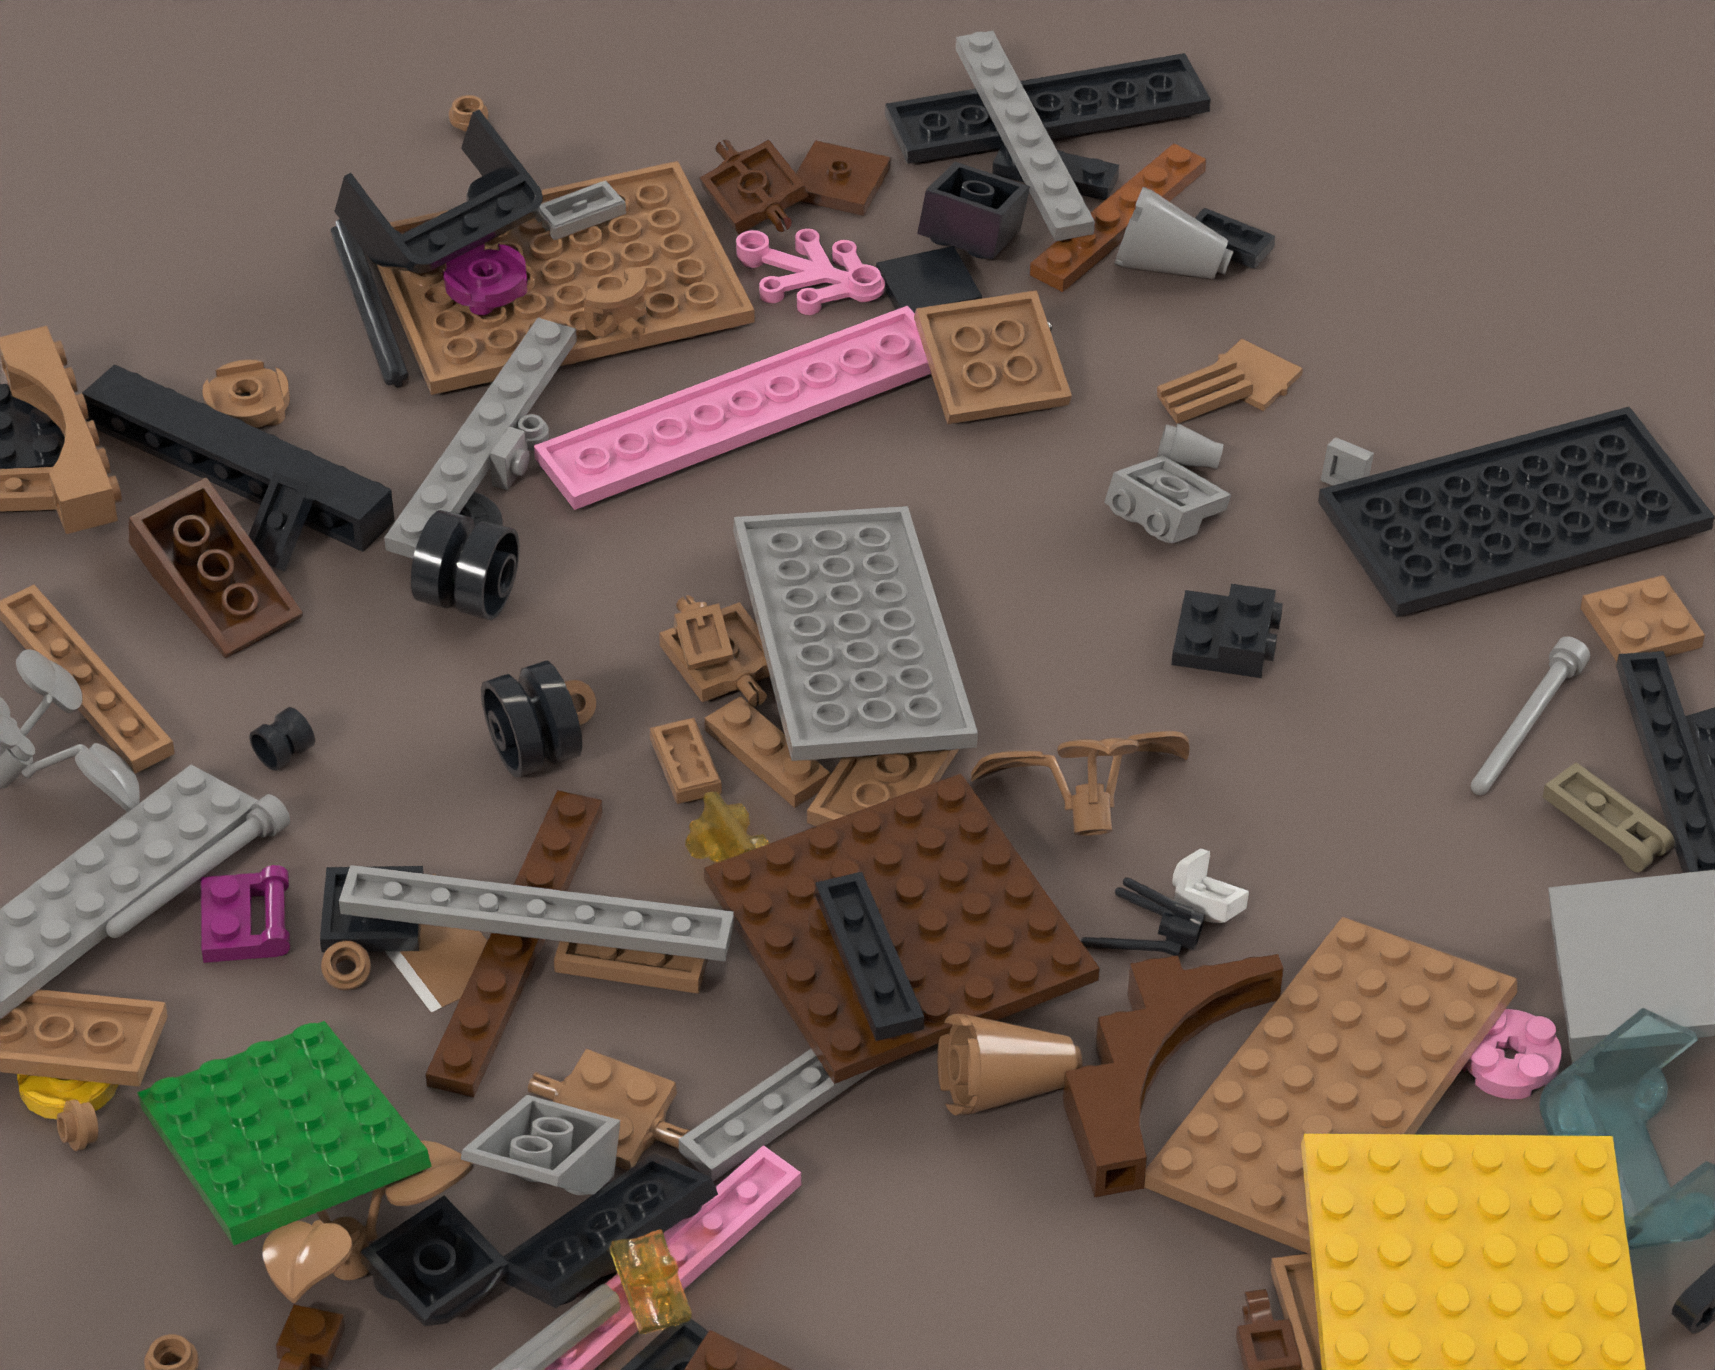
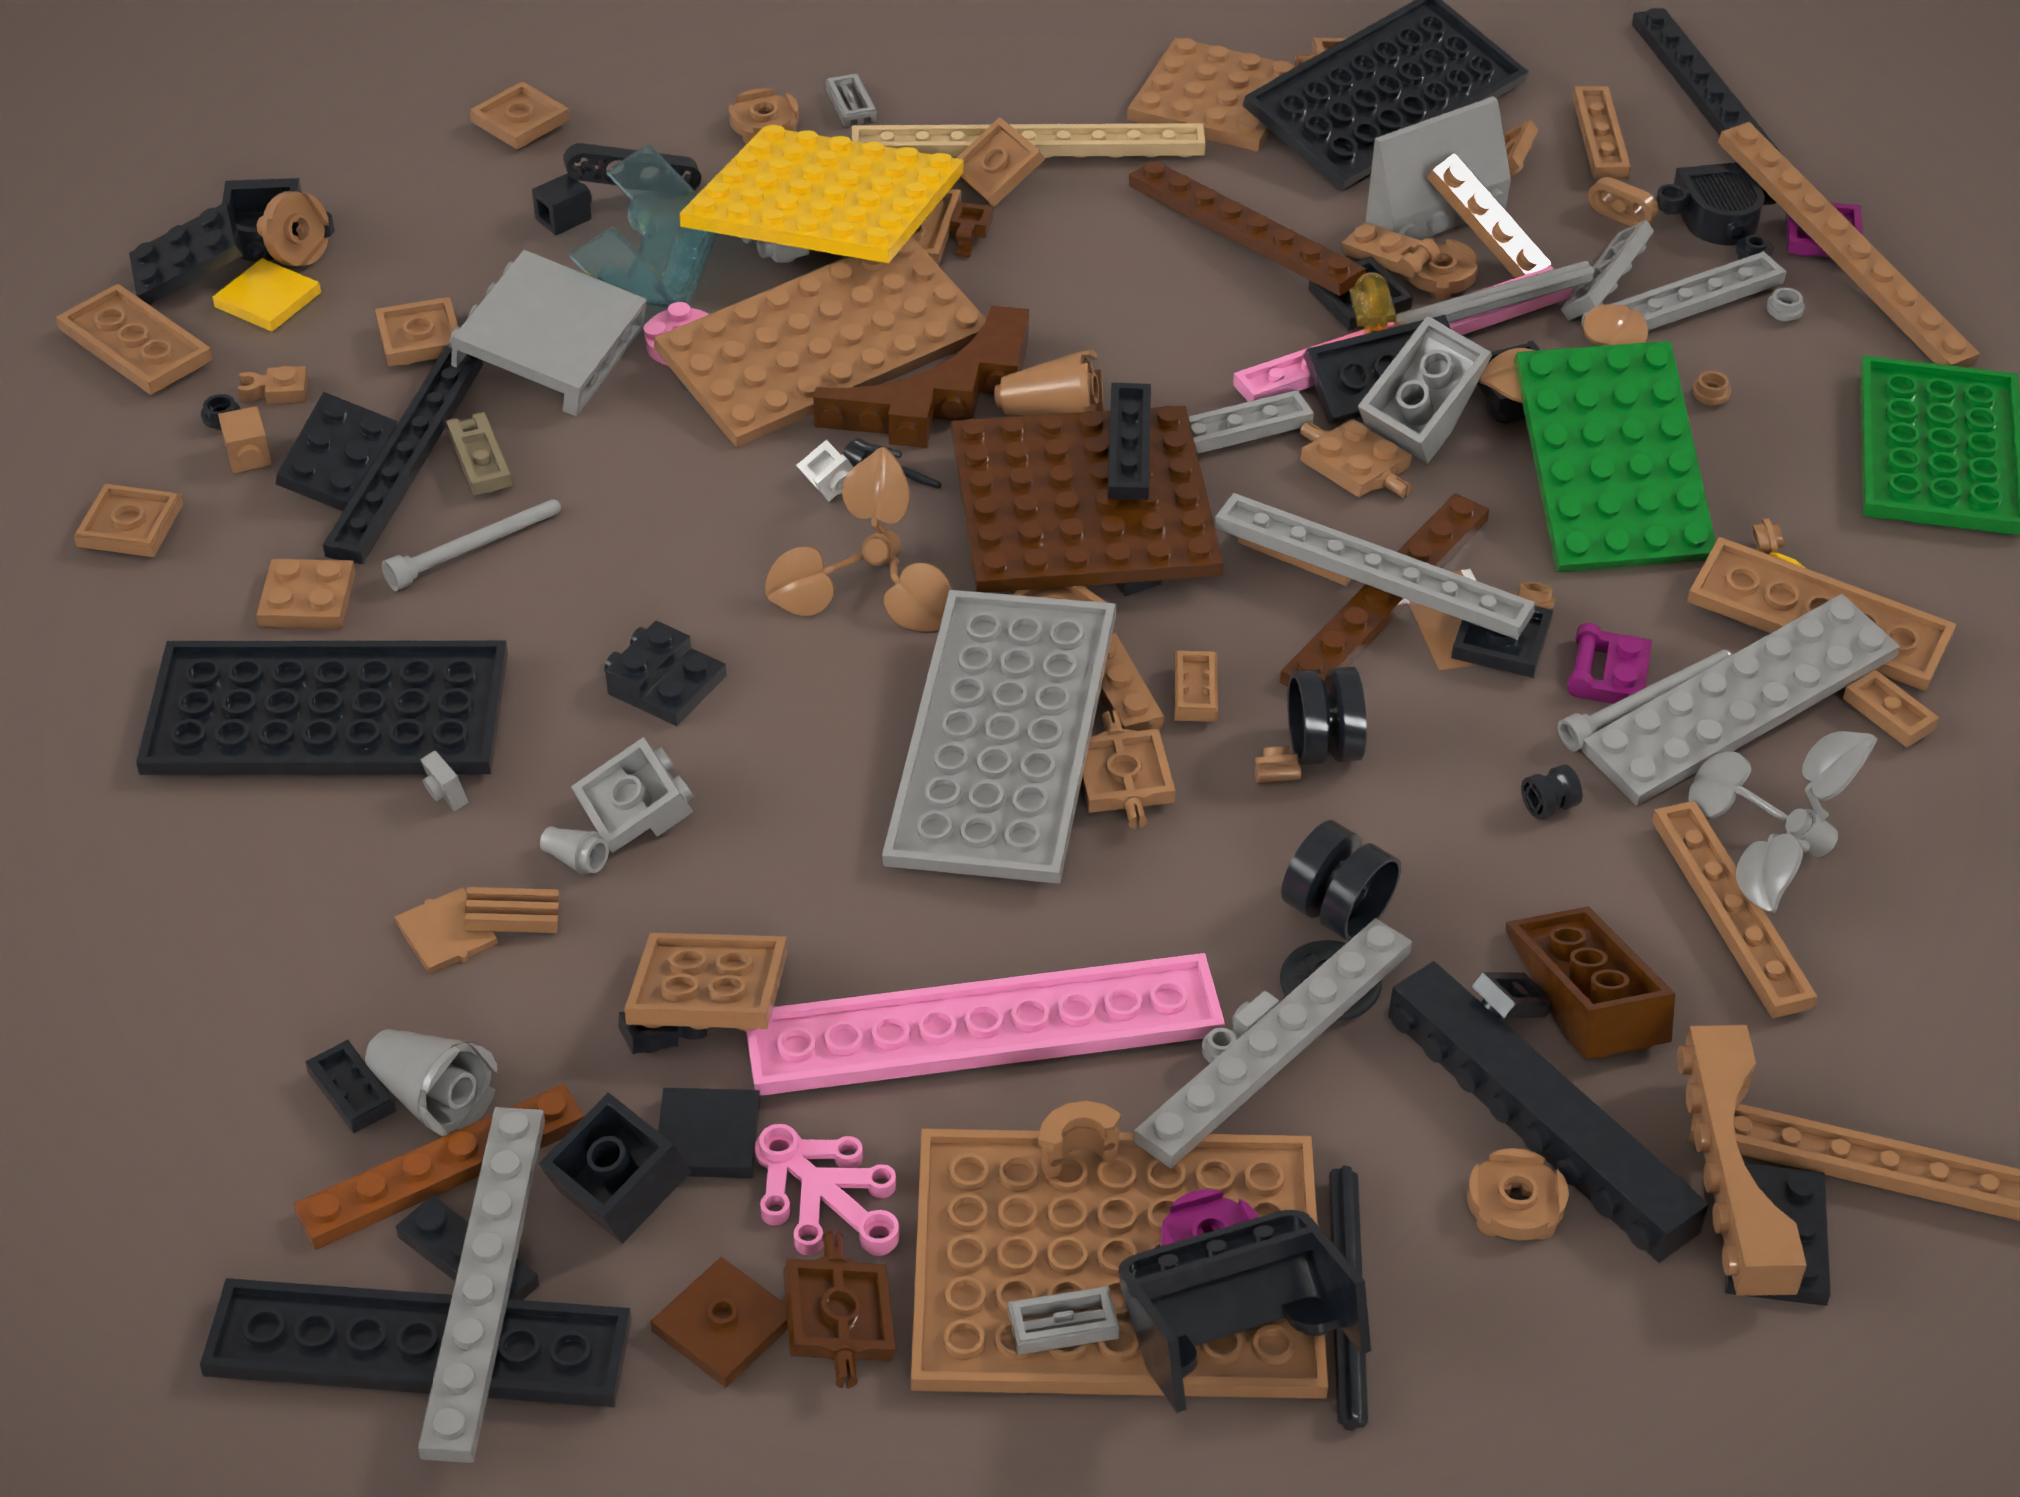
camera: 160 degrees left, 0 degrees up
(702, 635) = (1143, 752): medium nougat bracket -> none
(721, 831) = (1204, 603): clear yellow hips -> none

